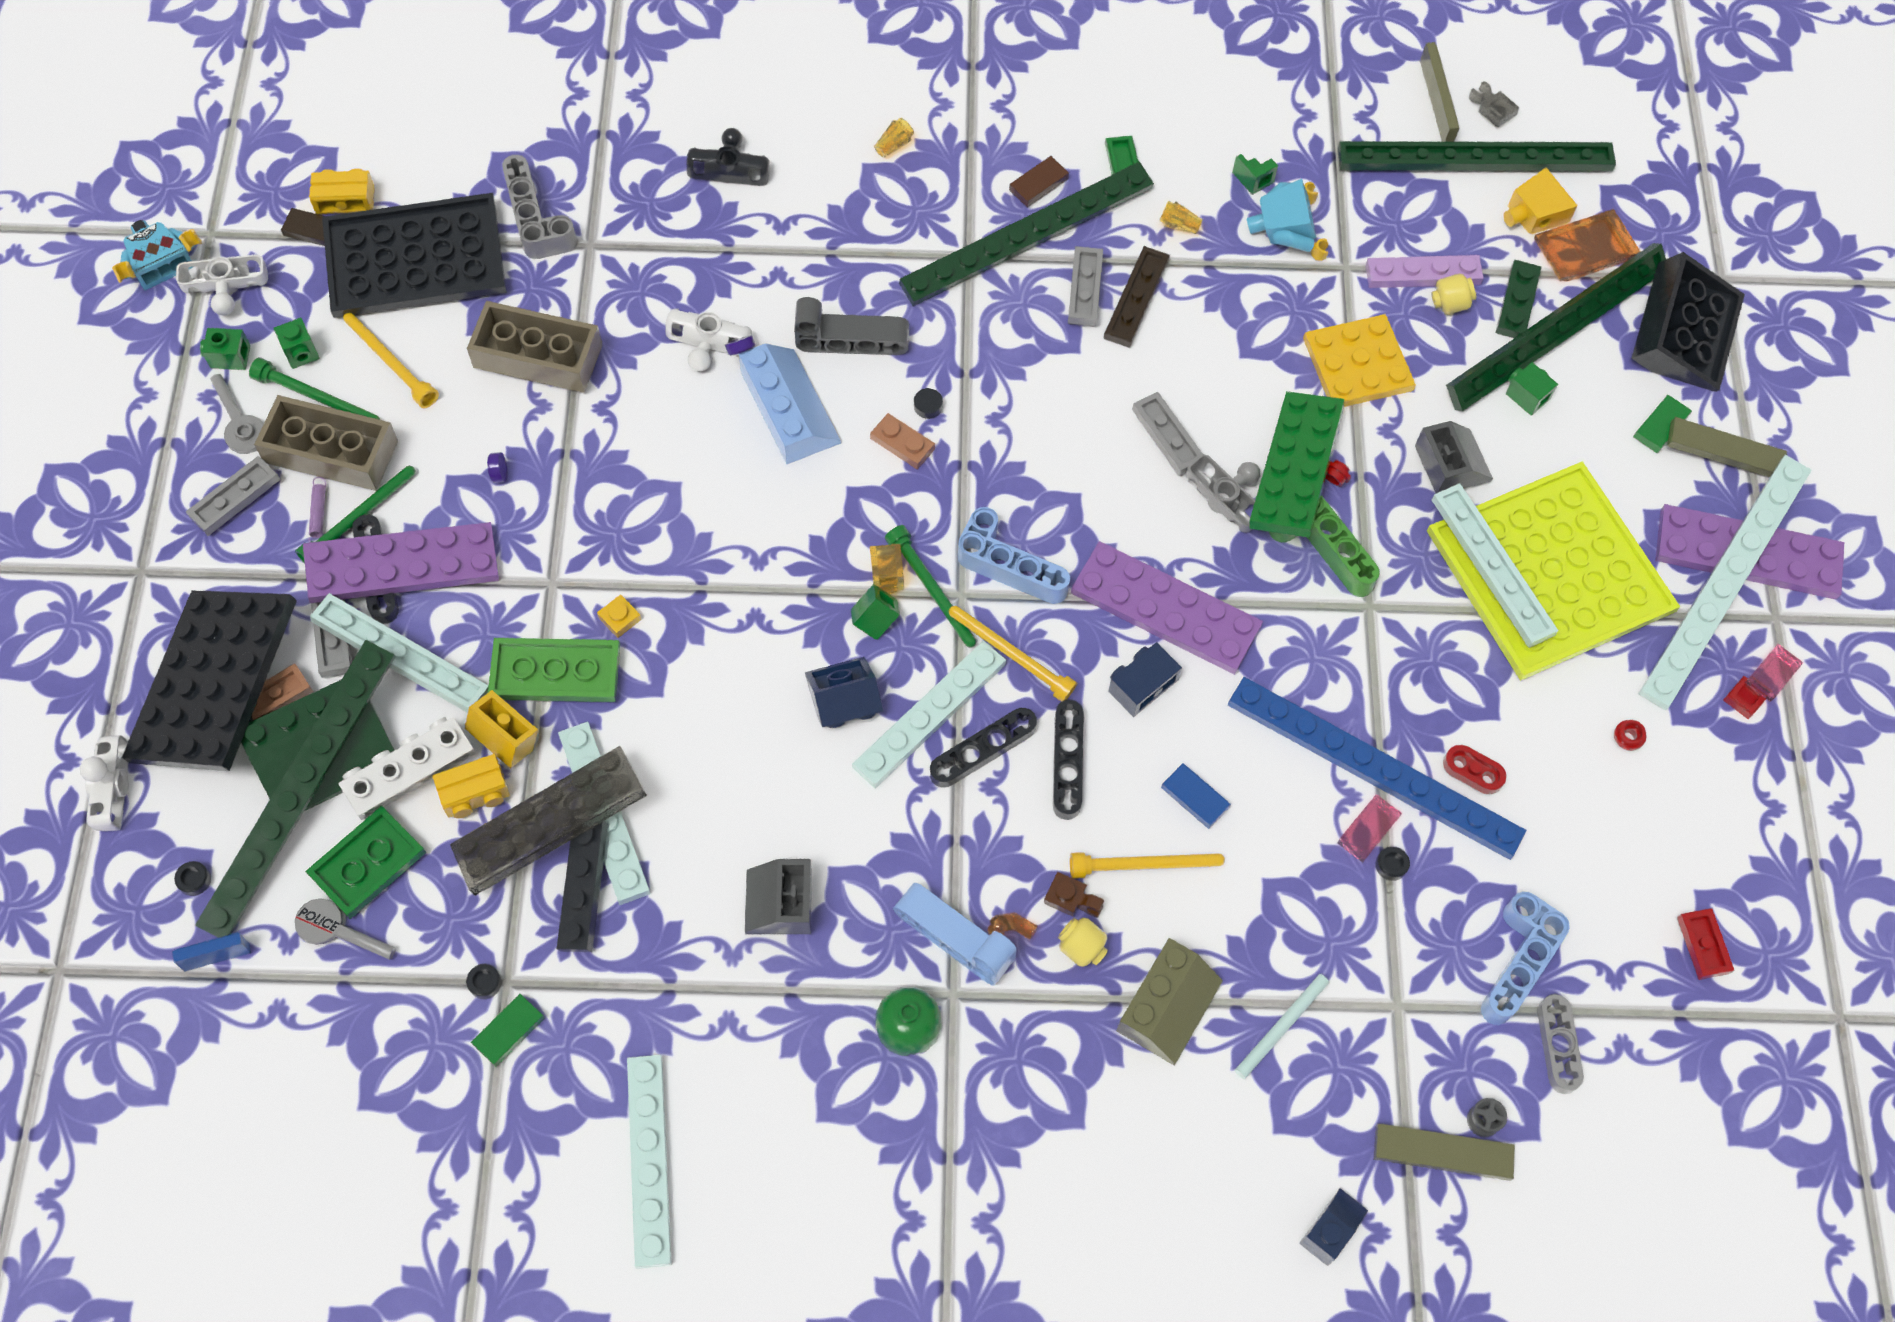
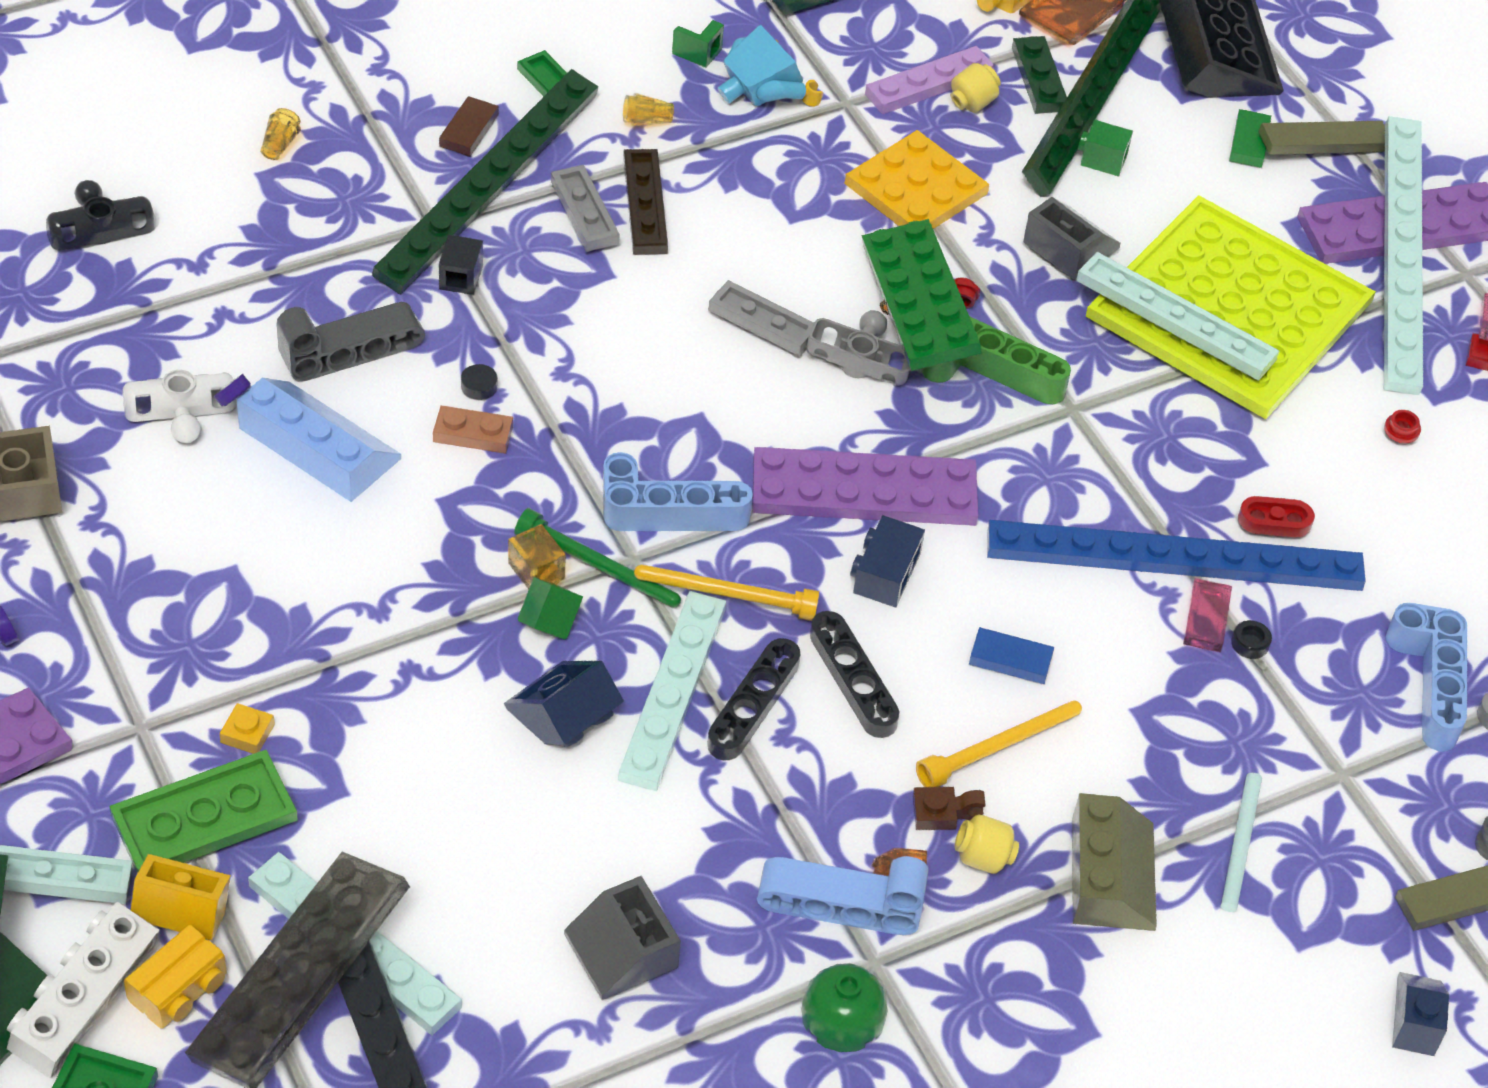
camera: 30 degrees left, 15 degrees down
(965, 300) = (460, 264): none -> black brick

